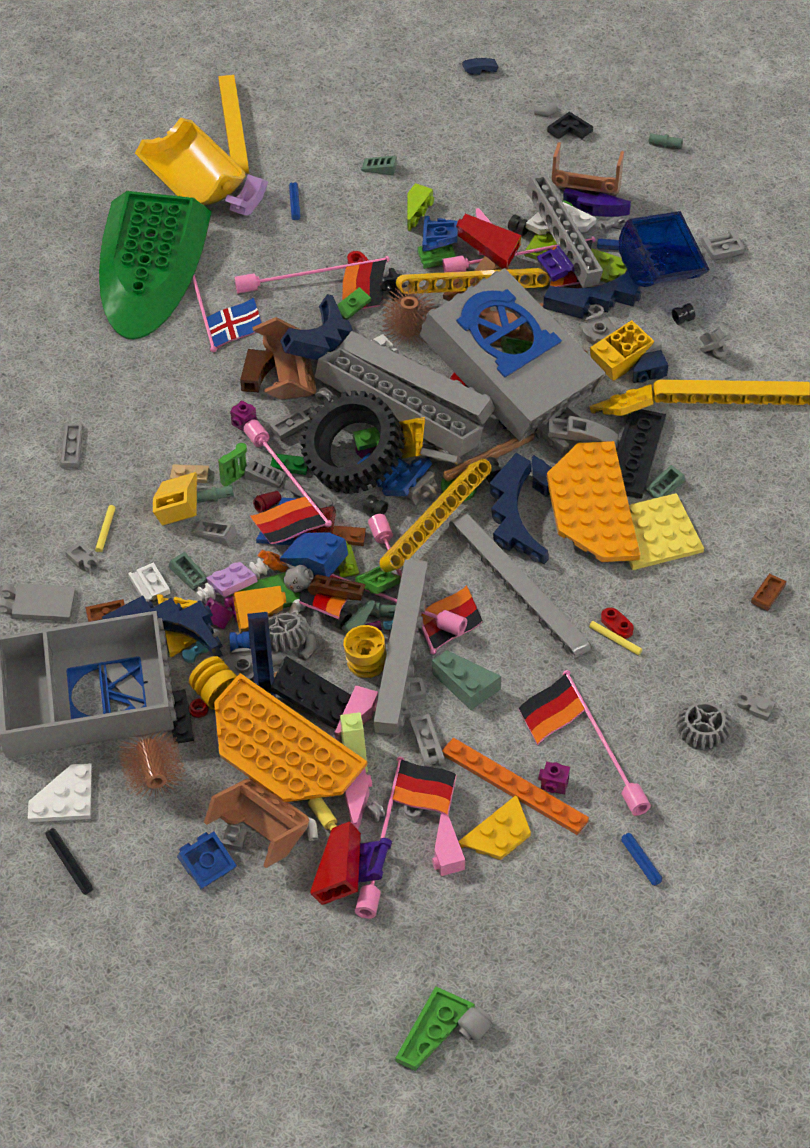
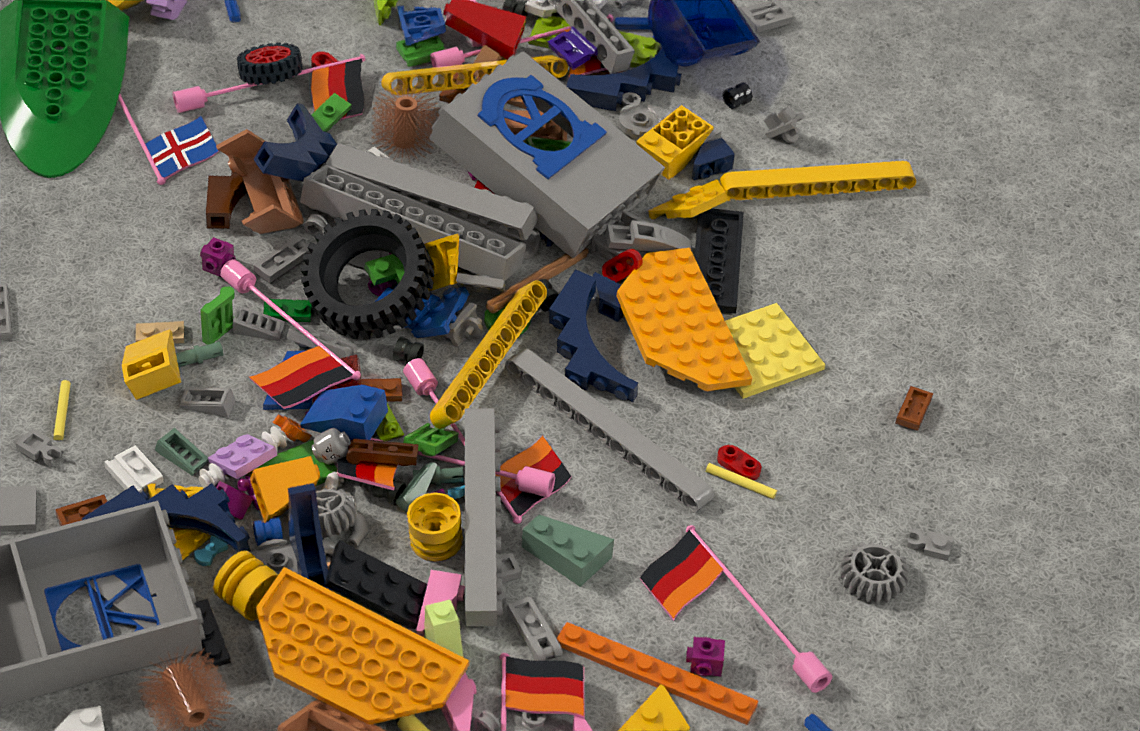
camera: 15 degrees left, 5 degrees down
(198, 703) = (229, 614): red plate -> none
(266, 501) = (267, 357): dark red cone -> none
(313, 258) = (269, 63): none -> black wheel
(389, 284) = (372, 86): black hips -> none
(556, 451) = (623, 264): none -> red plate
(670, 471) = (768, 279): sand green slope -> none

